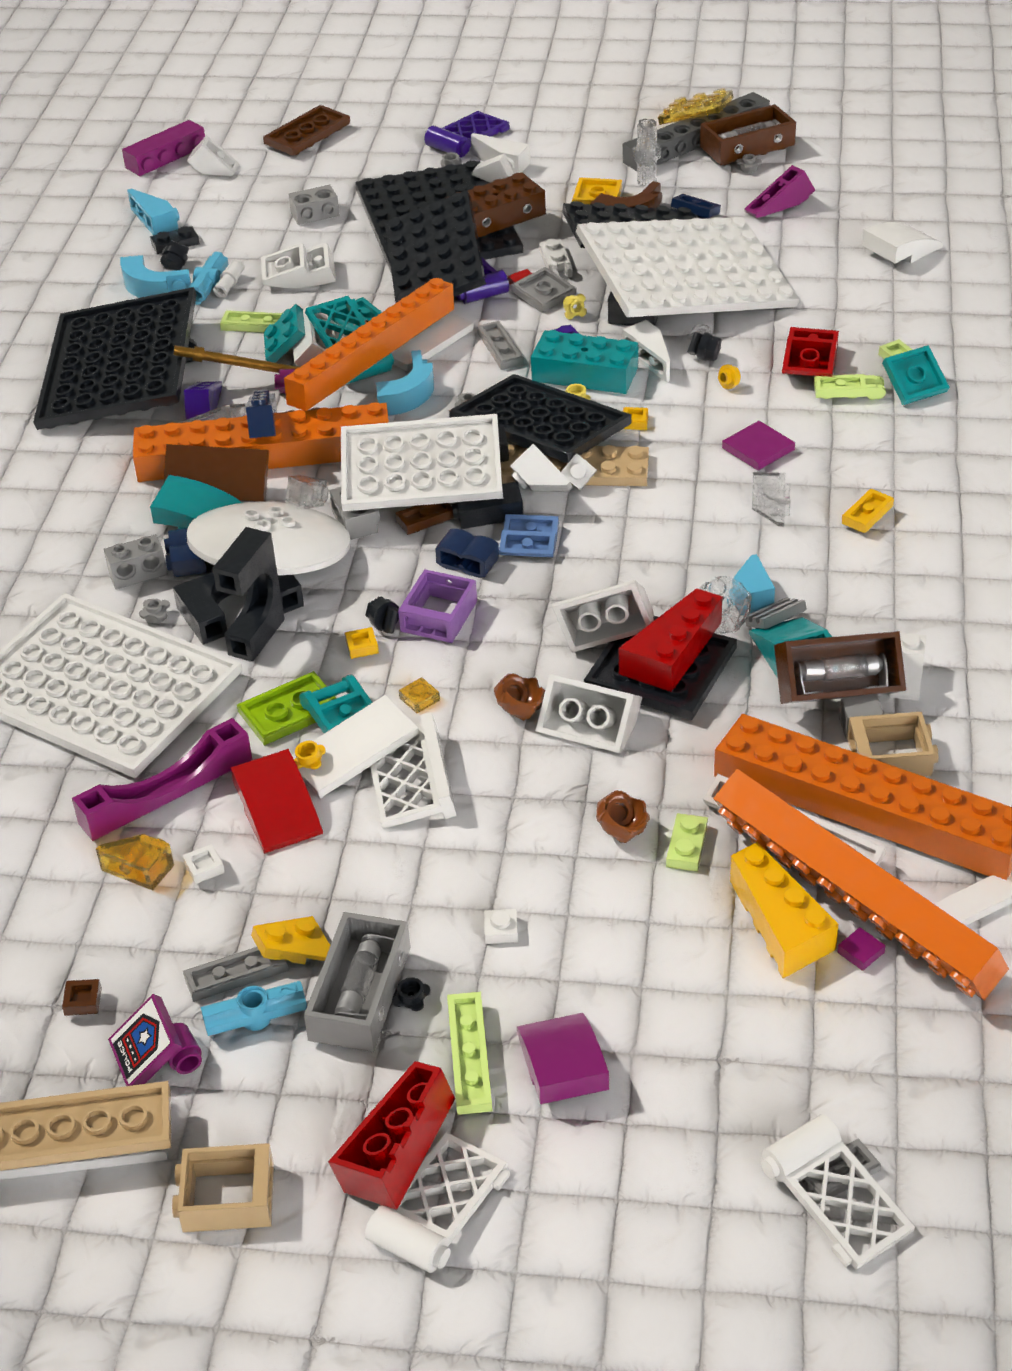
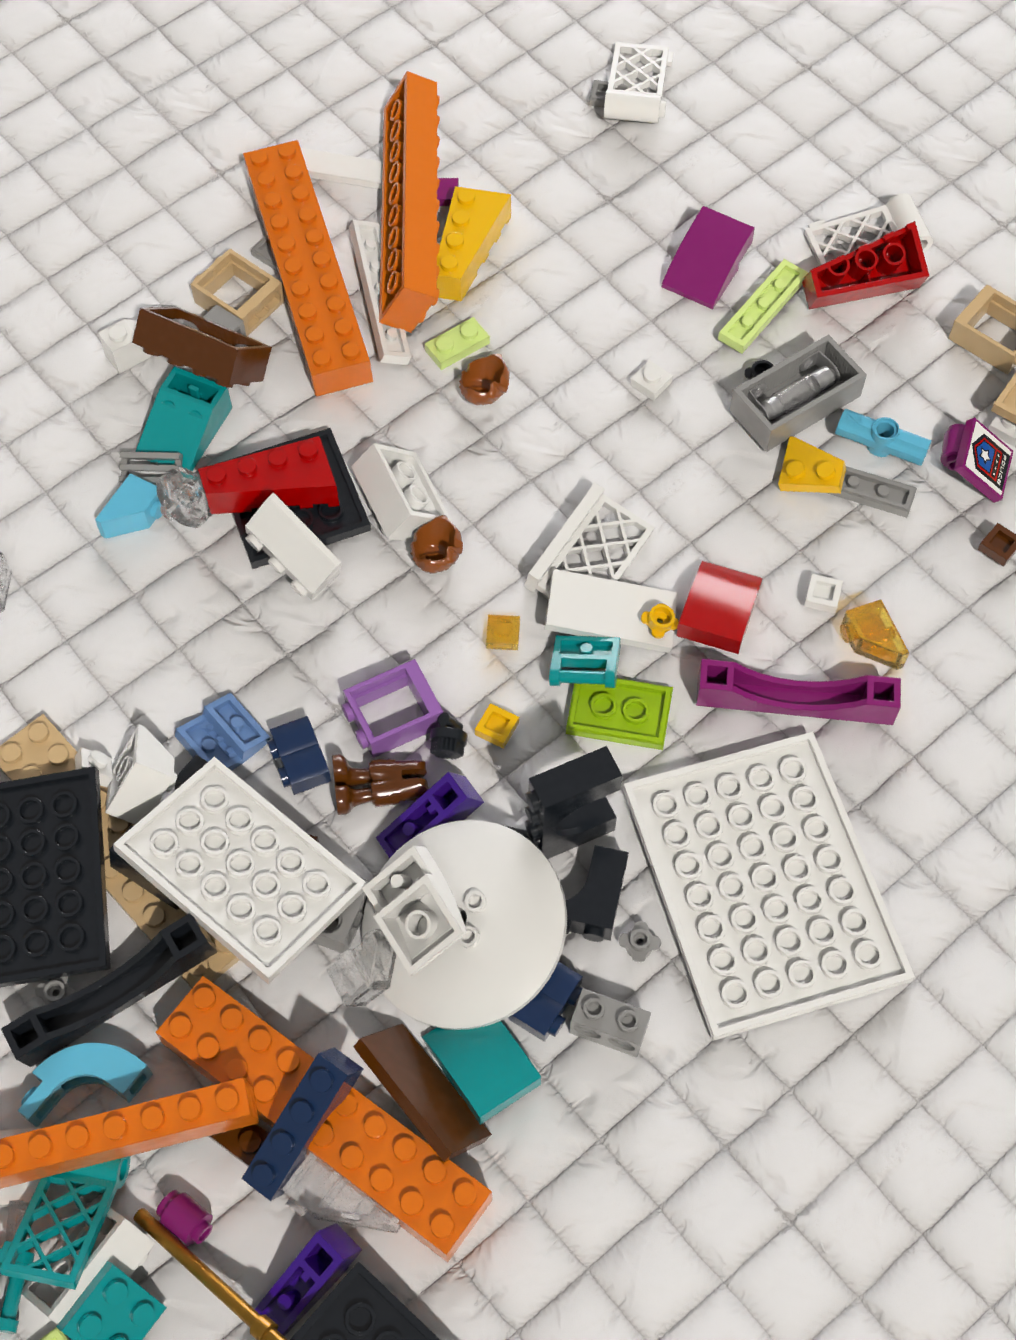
camera: 140 degrees left, 20 degrees up
(296, 503) = (415, 908): none -> white slope
(347, 579) = (445, 802): none -> dark purple slope
(402, 573) = (389, 780): none -> reddish brown piece
(445, 387) = (67, 1019): none -> black arch

